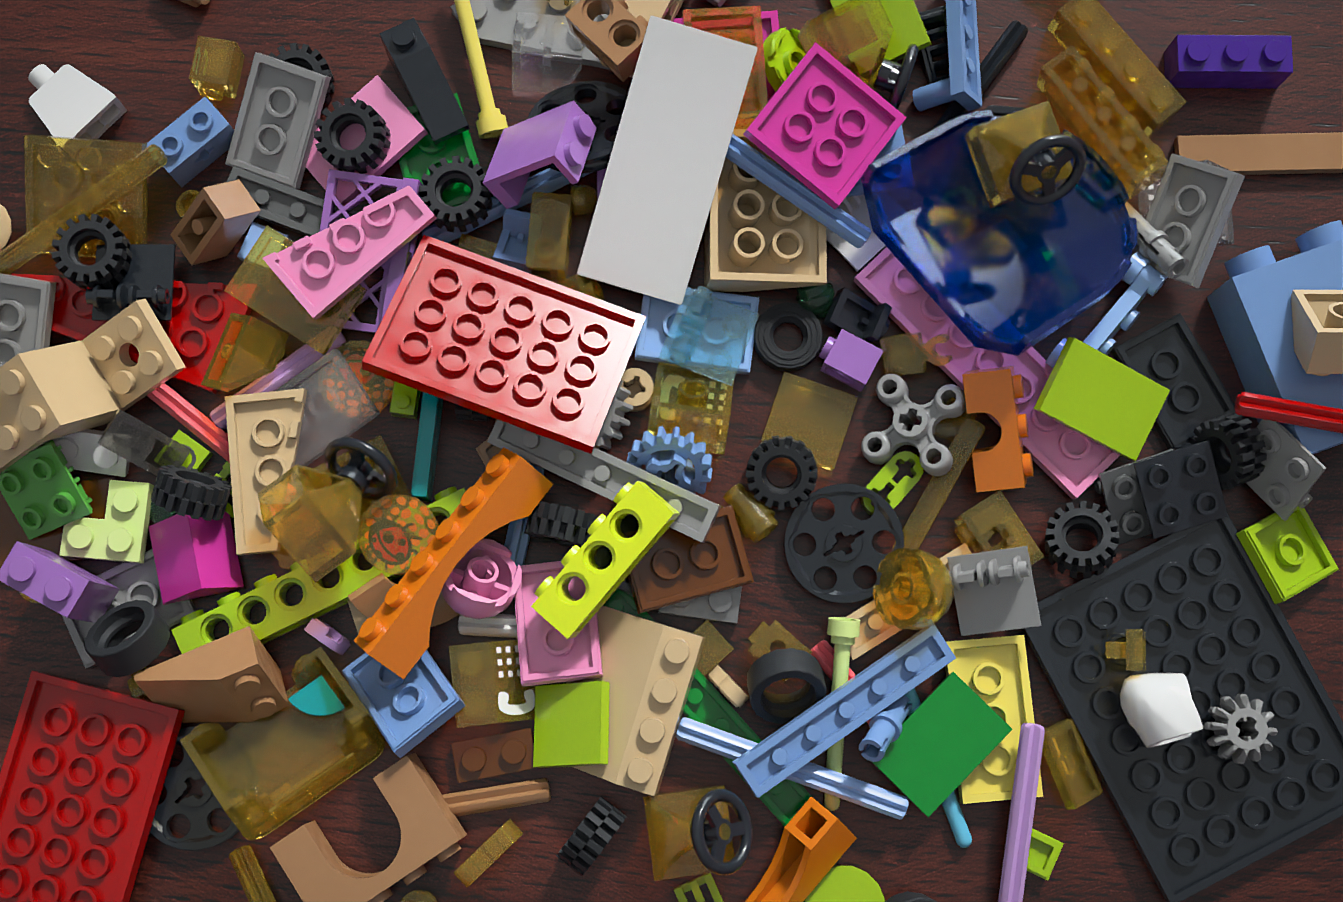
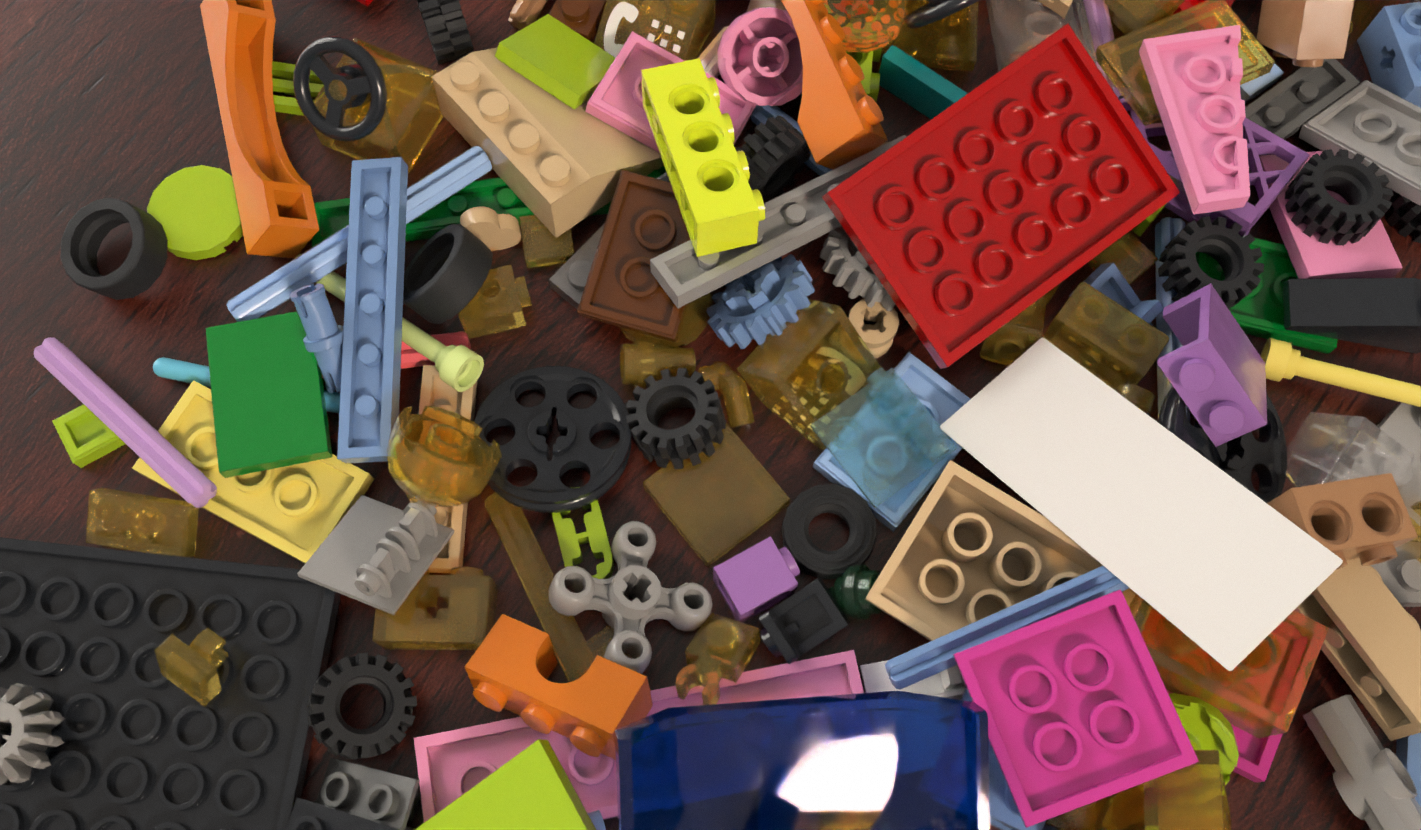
camera: 125 degrees right, 10 degrees down
(735, 451) = (734, 392): none -> clear yellow arm
(1159, 707) = (101, 647): white piece -> none

